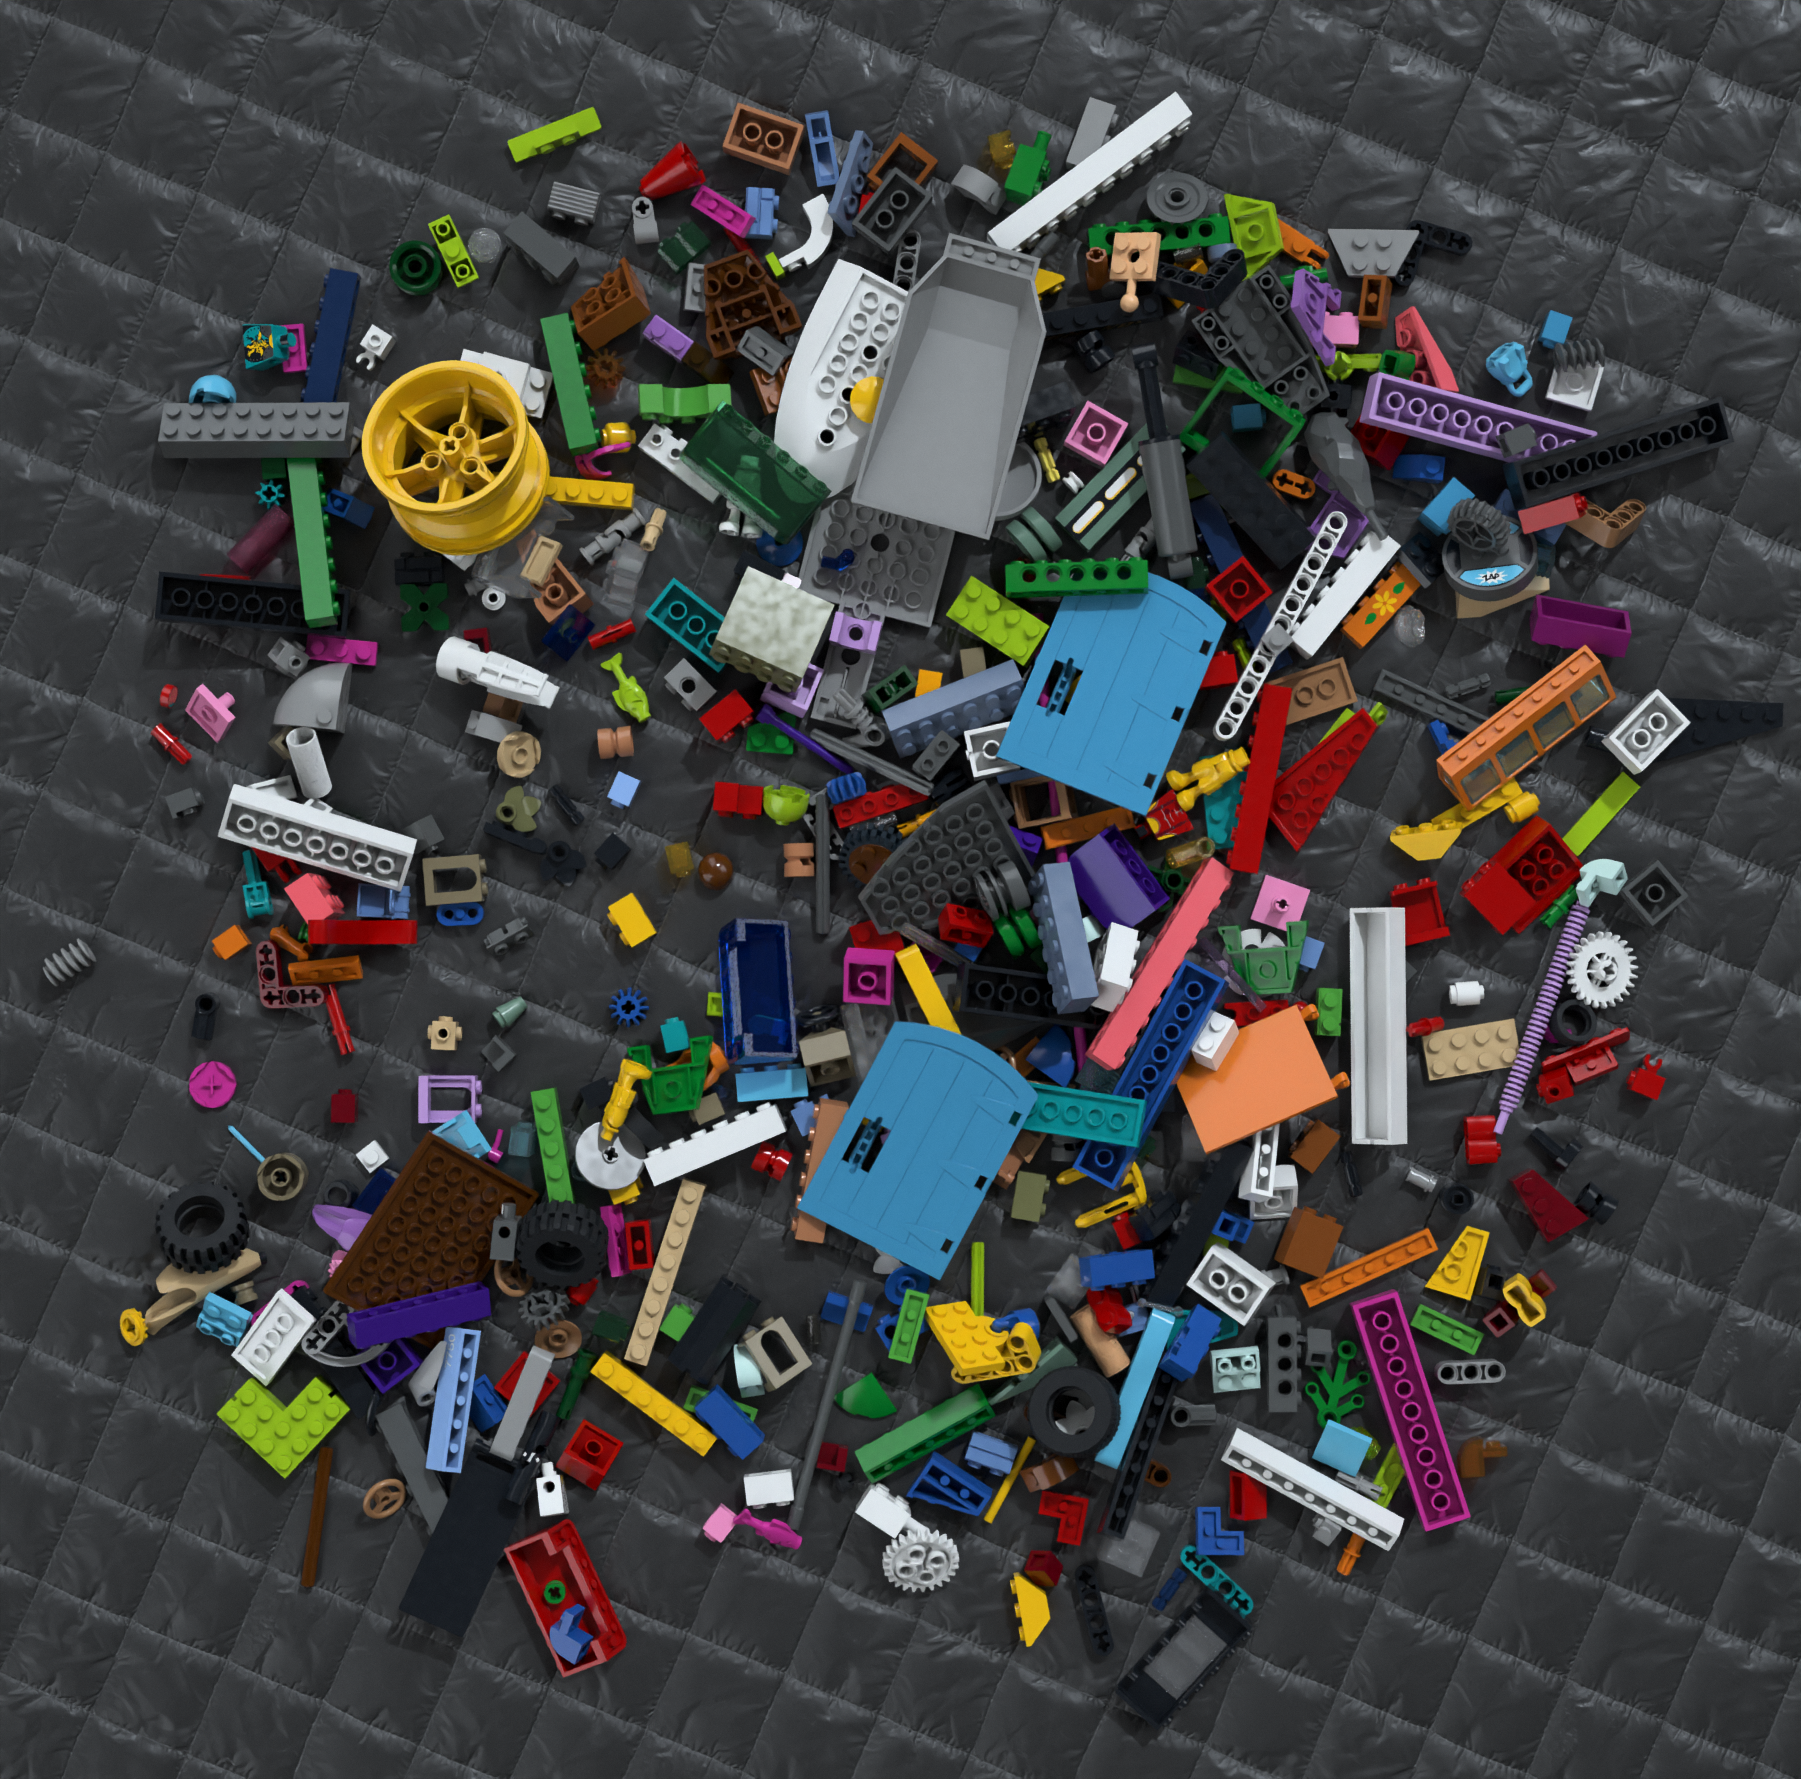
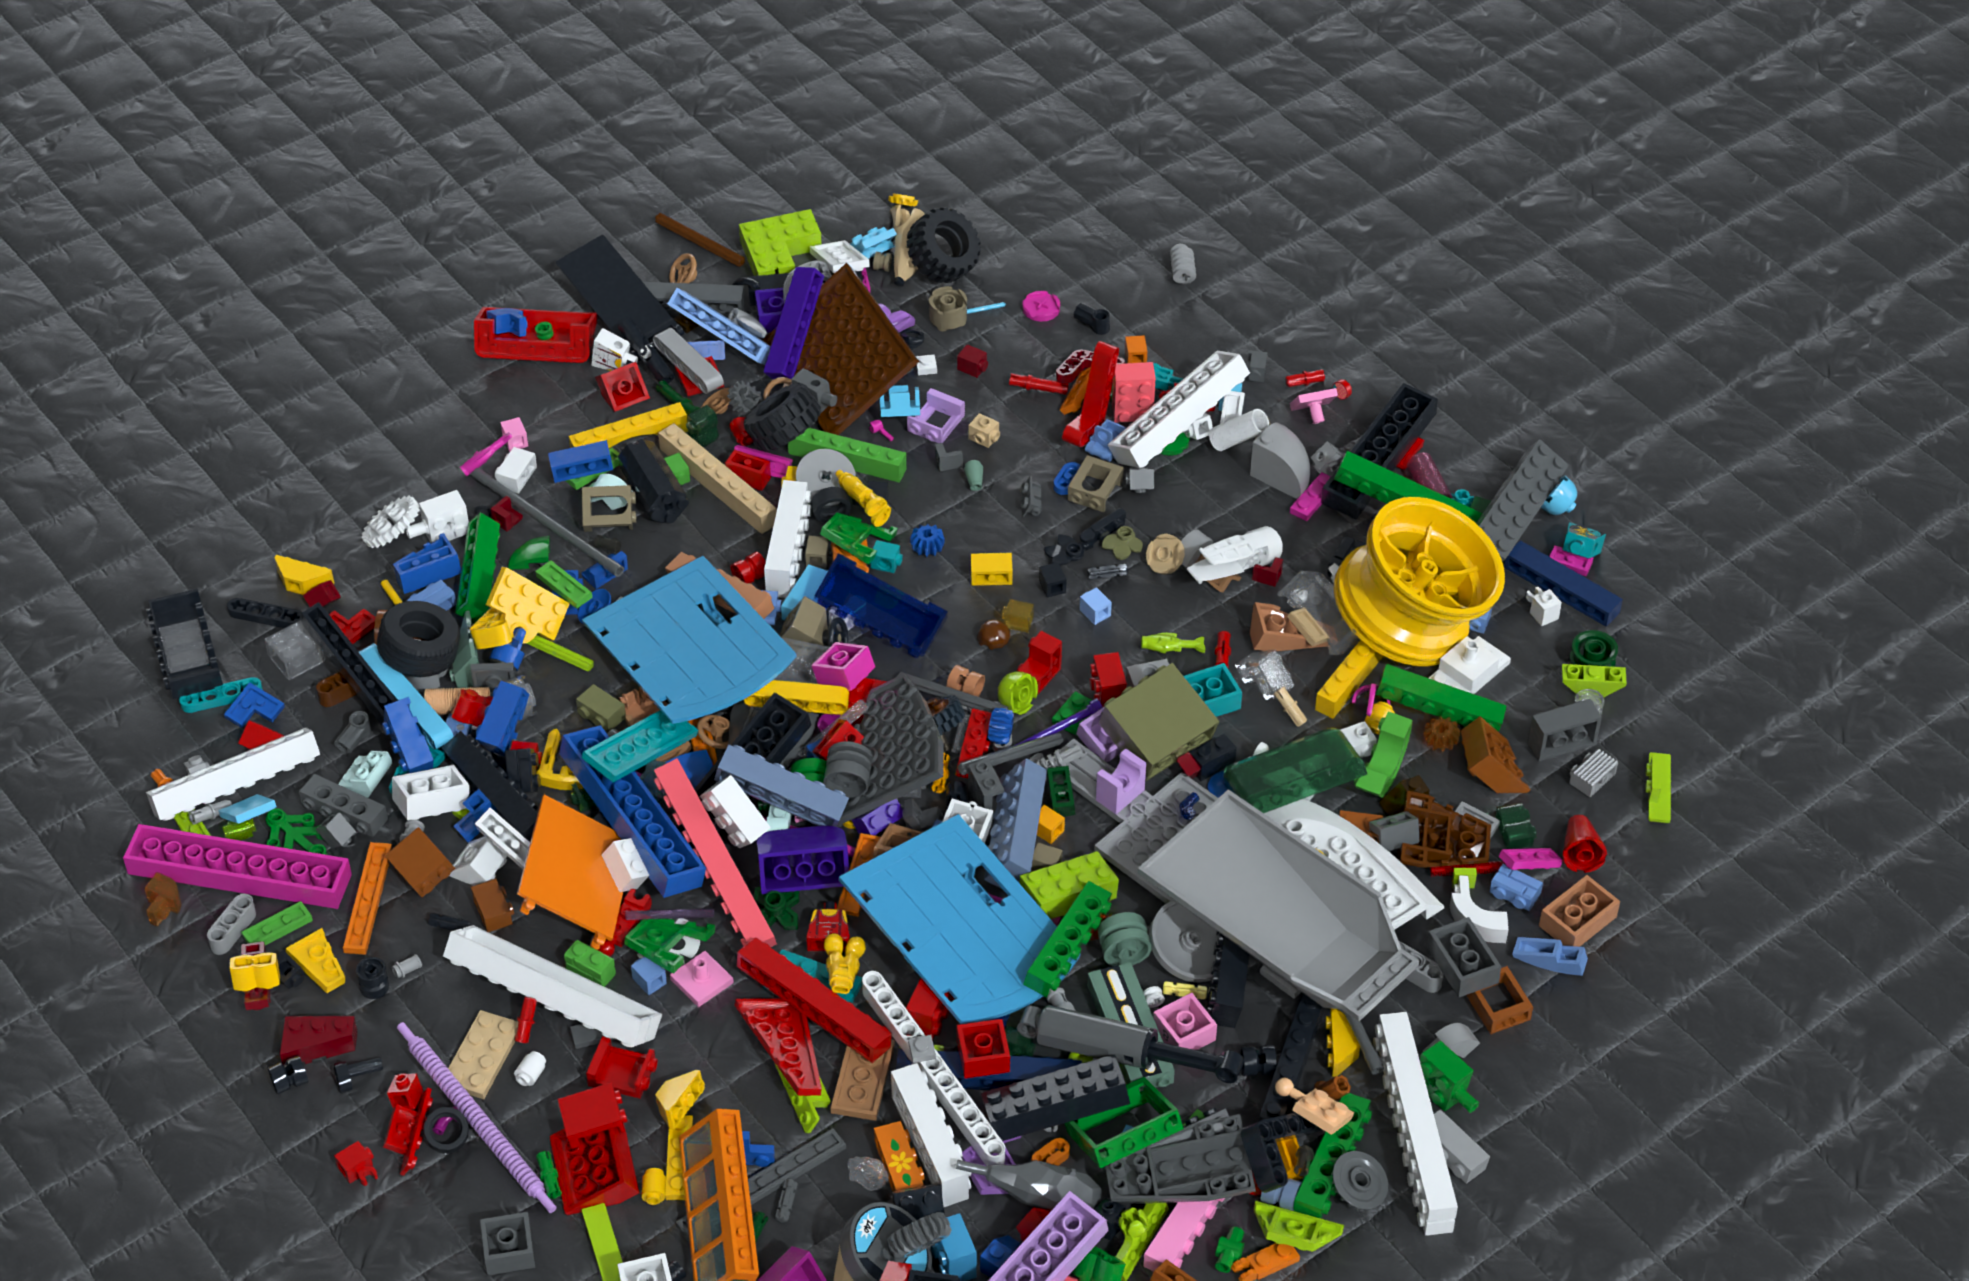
camera: 120 degrees right, 40 degrees down
(433, 597) = (1315, 546): dark green plant -> none
(523, 1139) = (874, 431): clear light blue brick -> none
(568, 632) = (1240, 618): clear blue plate -> none
(609, 539) = (1302, 688): light grey piece -> none
(615, 742) = (1135, 614): nougat wheel -> none
(644, 224) = (1550, 809): light grey piece -> none
(667, 338) = (1445, 780): medium lavender brick -> none
(851, 183) = (1511, 954): sand blue wing -> none
(1001, 149) = (1481, 1078): clear yellow brick -> none
(1169, 1589) = (239, 663): dark blue axle -> none
(1178, 1311) = (439, 752): clear hinge -> none
(1189, 852) = (789, 926): clear yellow piece -> none
(1309, 307) = (1201, 1211): medium lavender wing -> none
(1480, 1139) = (398, 1011): red brick -> none
(1599, 876) = (551, 1208): light aqua brick -> none
(1615, 973) = (456, 1169): white gear -> none

